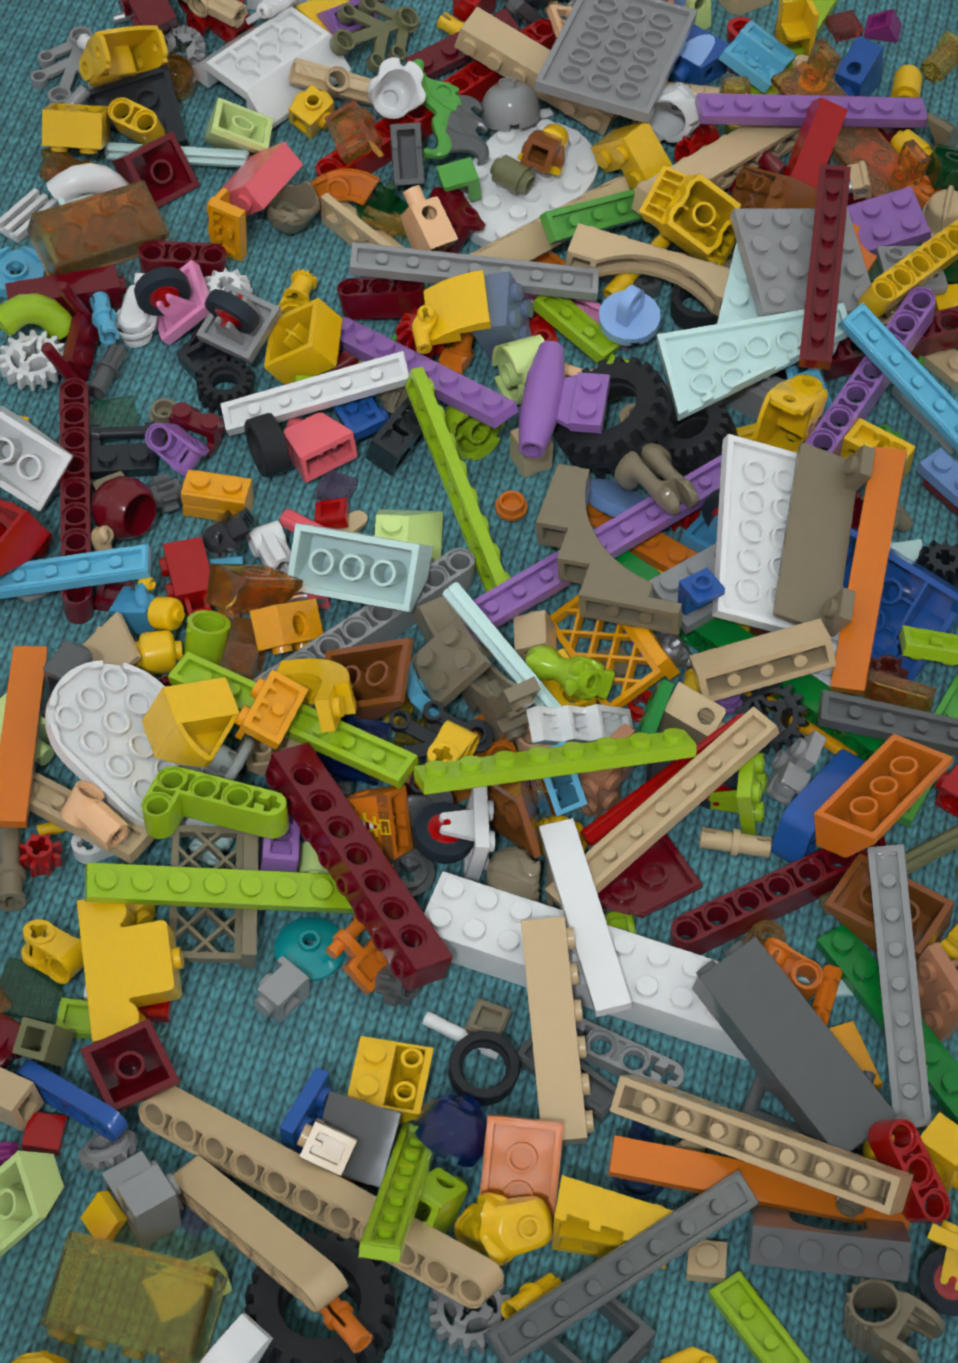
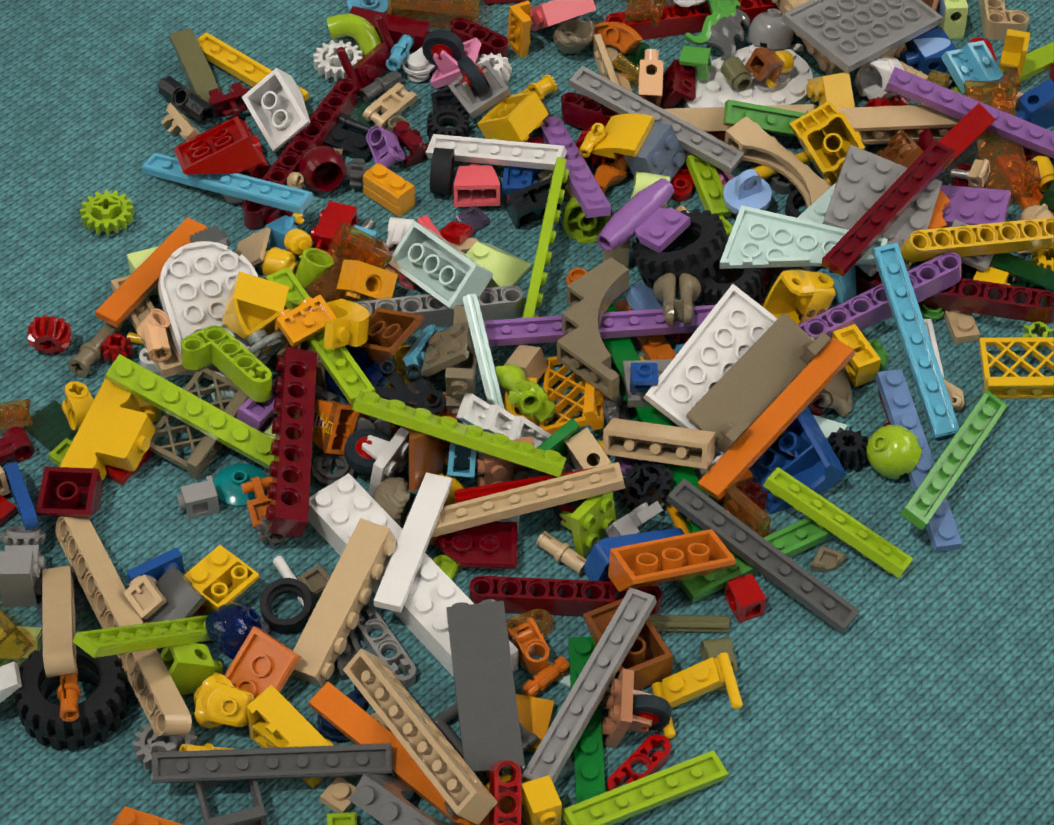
camera: 30 degrees right, 5 degrees down
(43, 1042) = (31, 455): olive brick -> none
(138, 389) = (390, 104): none -> tan plate
(228, 531) = (377, 211): black hips -> none
(406, 154) = (672, 31): dark grey brick -> none
(453, 743) = (407, 392): yellow piece -> none

